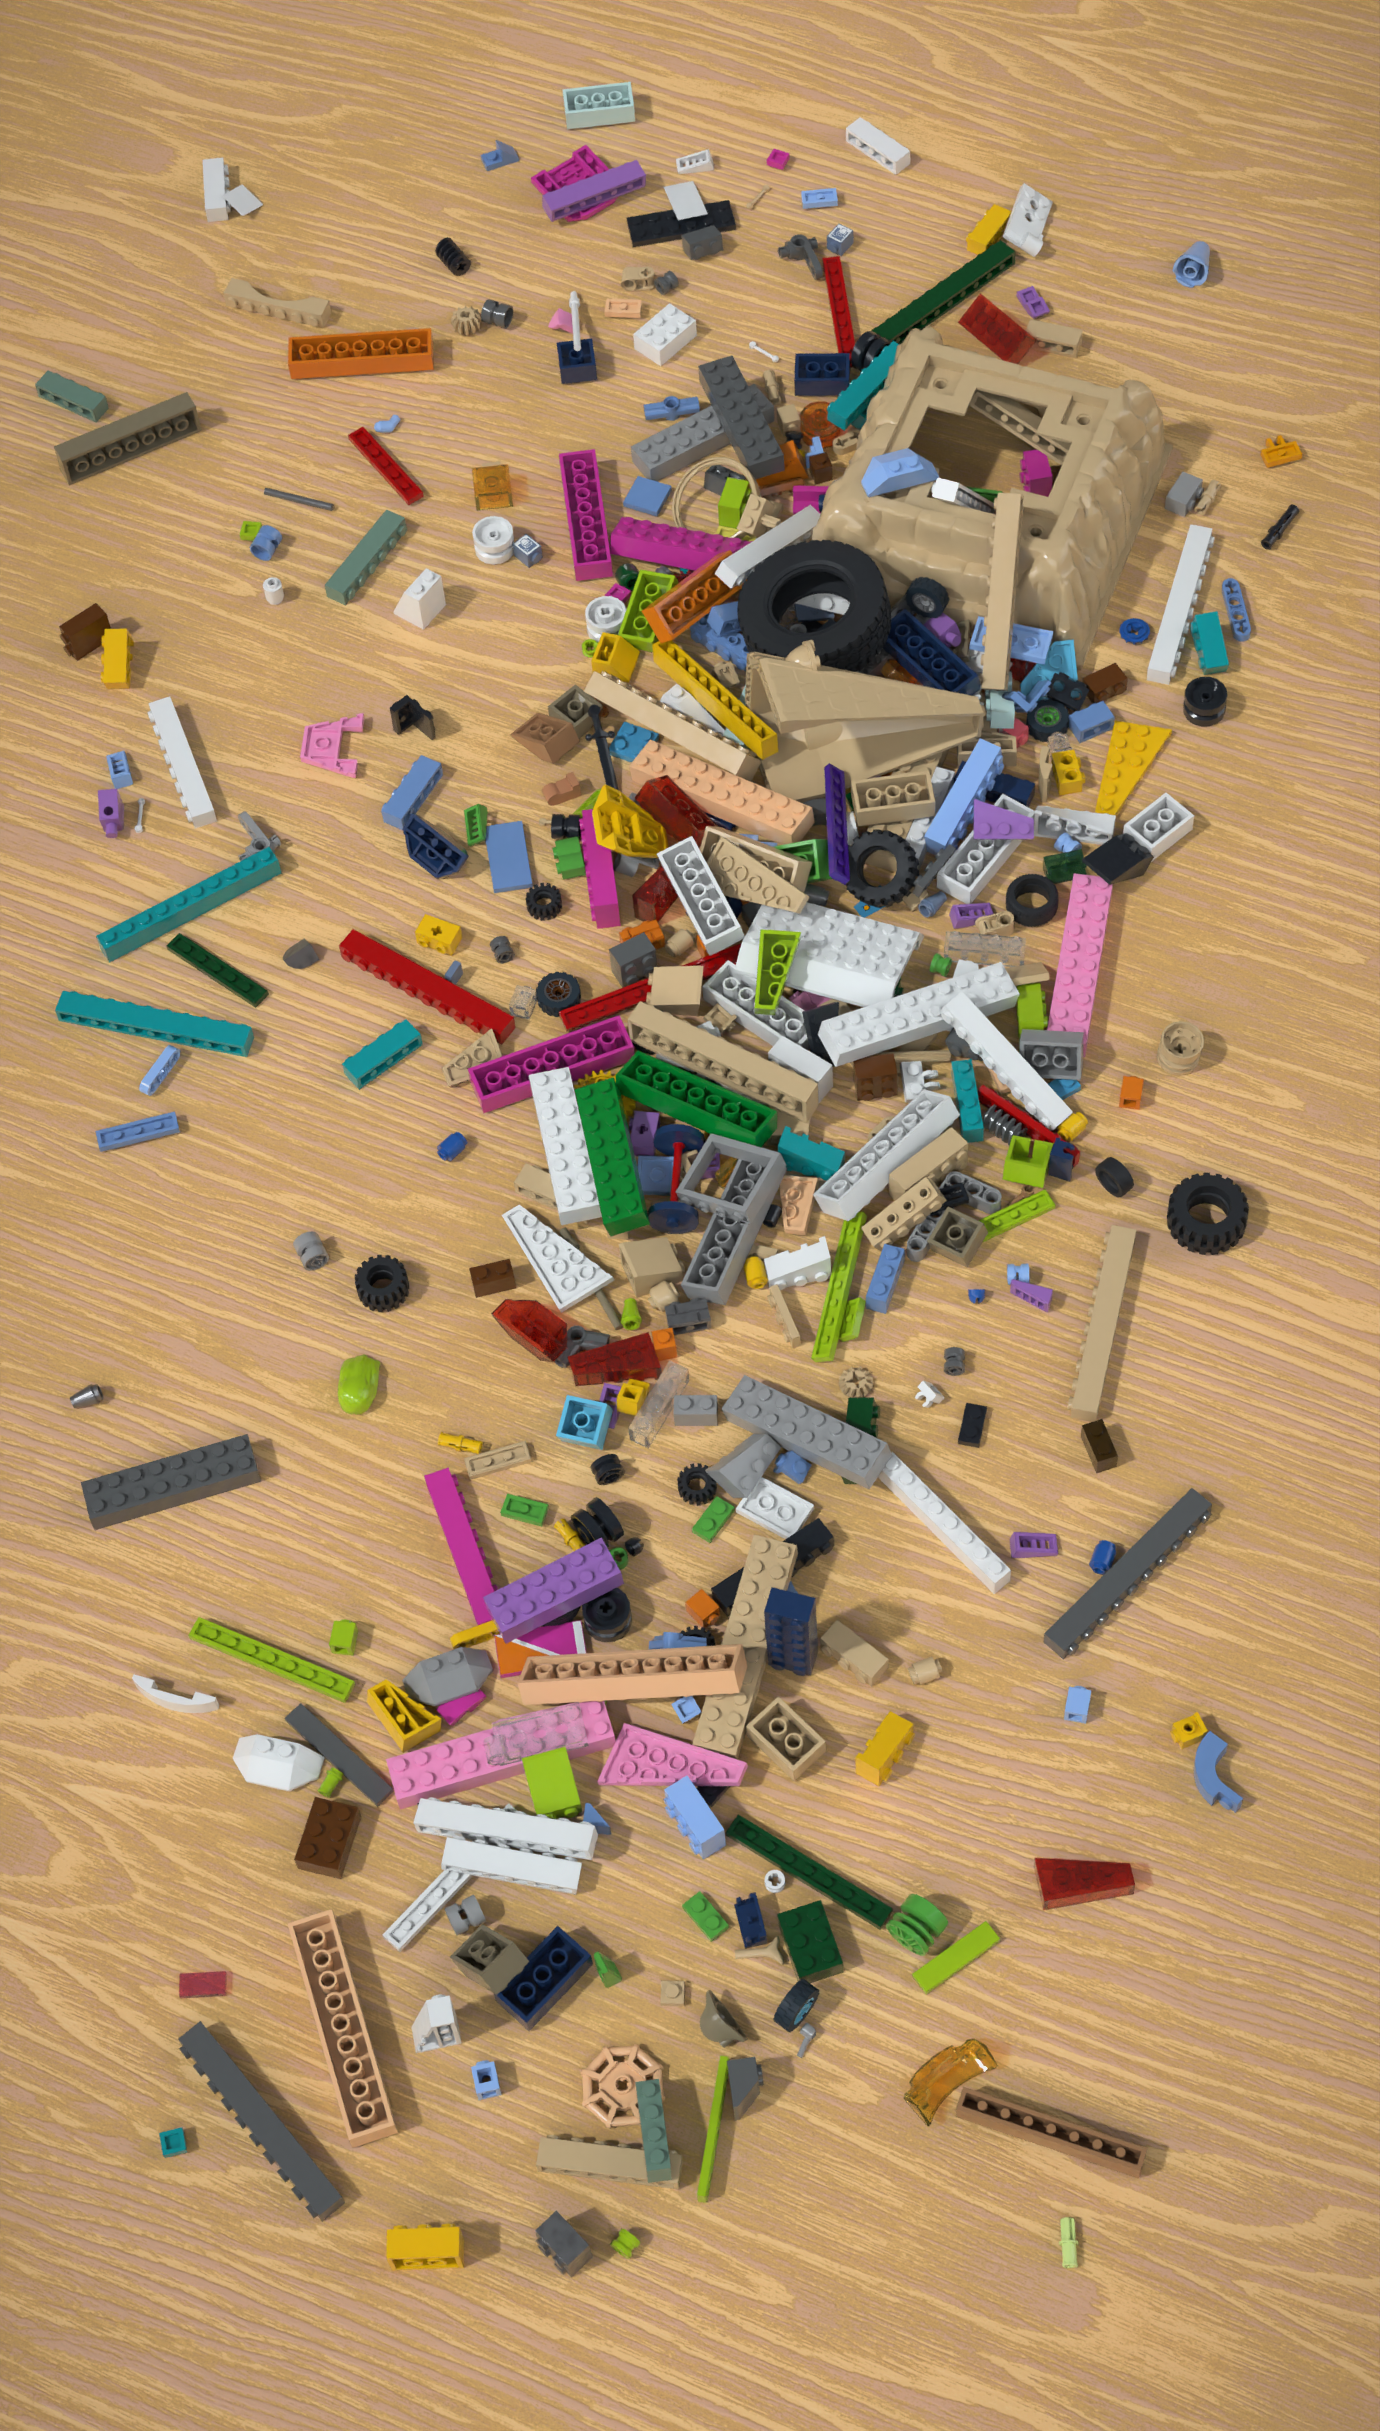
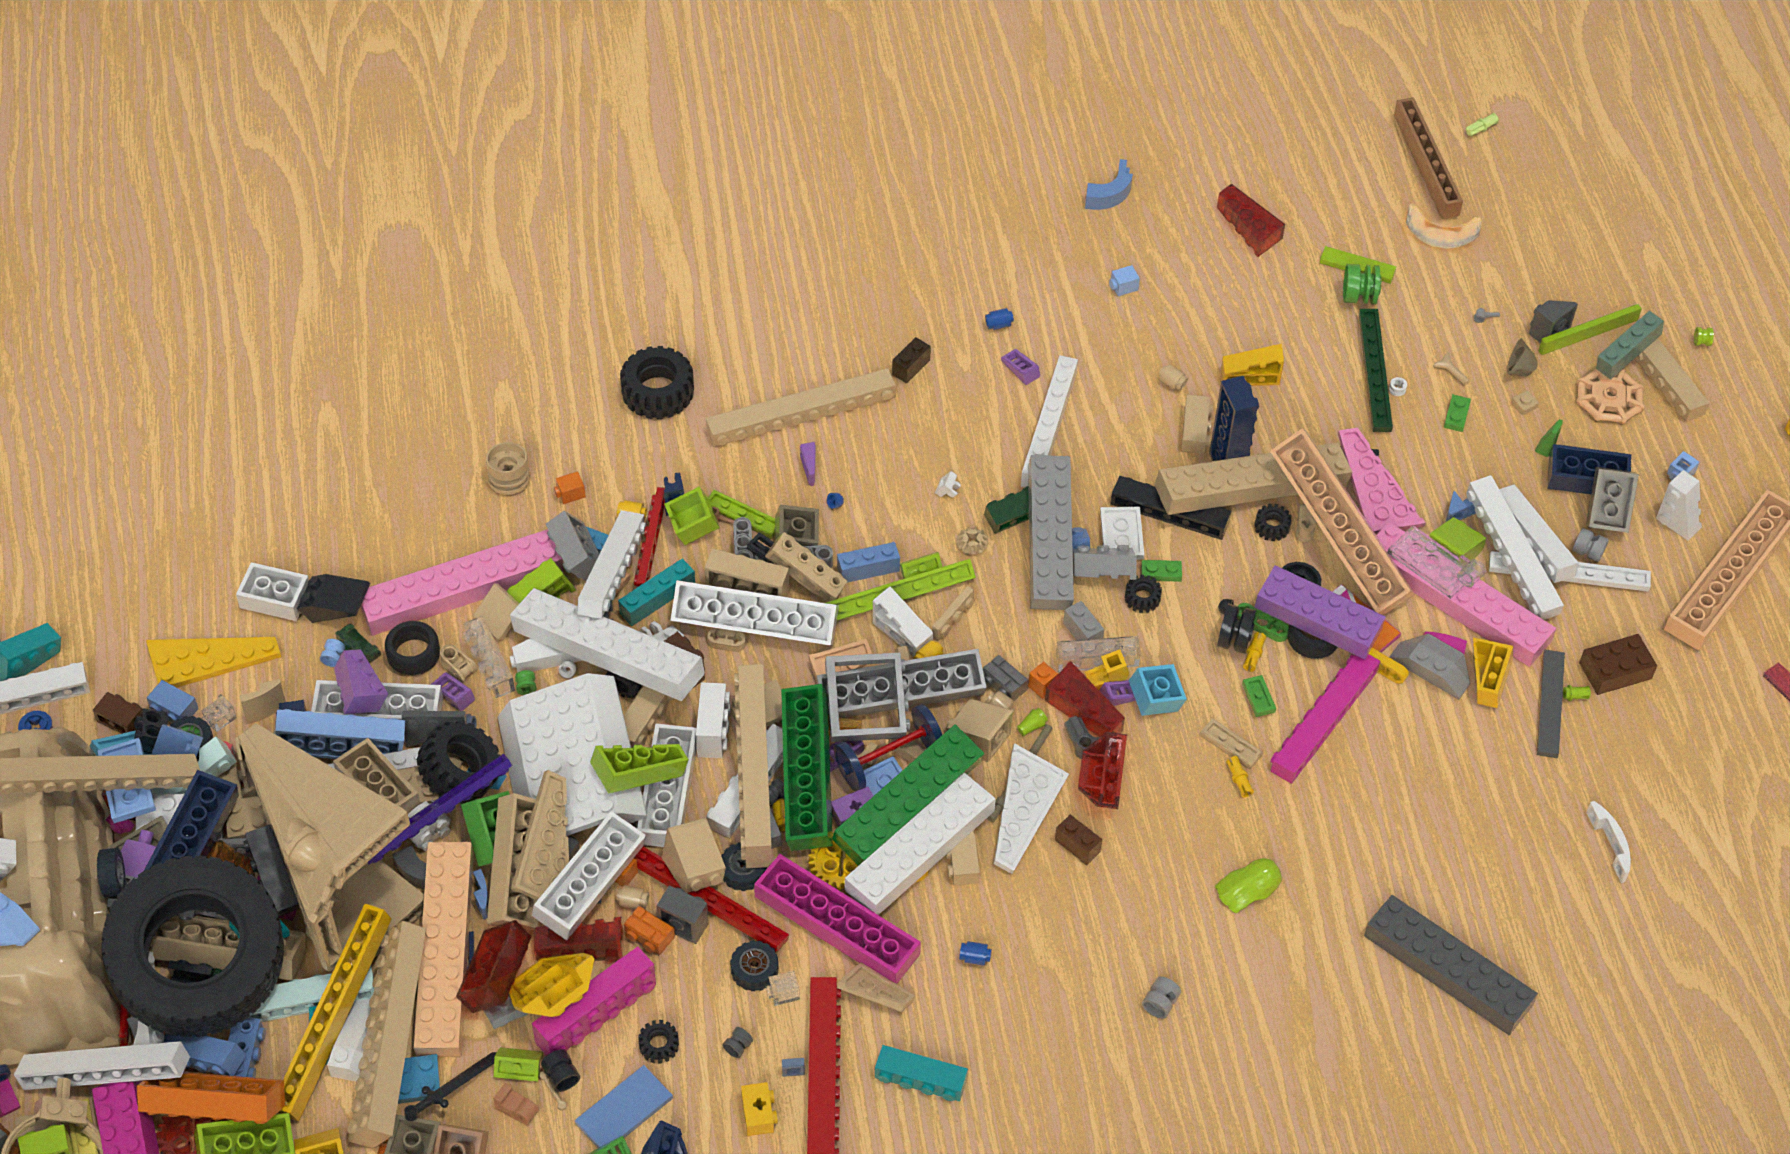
camera: 130 degrees left, 5 degrees down
(88, 1396) = (1432, 1090): flat silver cone -> none
(272, 1660) = (1524, 794): lime plate -> none
(276, 1762) = (1597, 739): white wedge -> none
(343, 1637) = (1464, 753): lime brick -> none
(378, 1269) = (1154, 905): black tyre -> none
(563, 2243) = (1741, 360): flat silver brick -> none
(569, 857) = (594, 1047): bright green brick -> none
(607, 1469) = (1182, 655): black wheel -> none
(676, 1640) = (1289, 521): medium blue piece -> none
(694, 1818) = (1403, 443): light blue brick -> none
(703, 1609) = (1240, 533): orange brick -> none
(721, 1018) = (696, 810): tan bracket -> none
(725, 674) = (281, 1041): tan bracket -> none
(750, 1921) = (1438, 382): dark blue hinge -> none
(786, 1738) = (1294, 414): tan brick -> none
(796, 2005) = (1475, 319): black wheel -> none
(809, 1157) = (790, 665): teal wedge -> none
(810, 1942) = (1424, 340): dark green brick -> none
(812, 1022) = (665, 719): black wing -> none
(954, 1361) = (907, 483): dark grey wheel -> none
(972, 1425) = (950, 449): black plate -> none
(1001, 1126) = (664, 553): dark grey piece -> none
(1023, 1273) = (799, 482): light blue wheel -> none
(1067, 772) = (241, 687): yellow brick -> none
(1080, 825) = (304, 656): white wedge -> none
(1114, 1177) = (665, 455): black tyre -> none
(1127, 1574) = (993, 296): dark grey brick -> none
(1188, 1738) = (1091, 214): yellow brick -> none
(1205, 701) = (101, 623): black wheel -> none

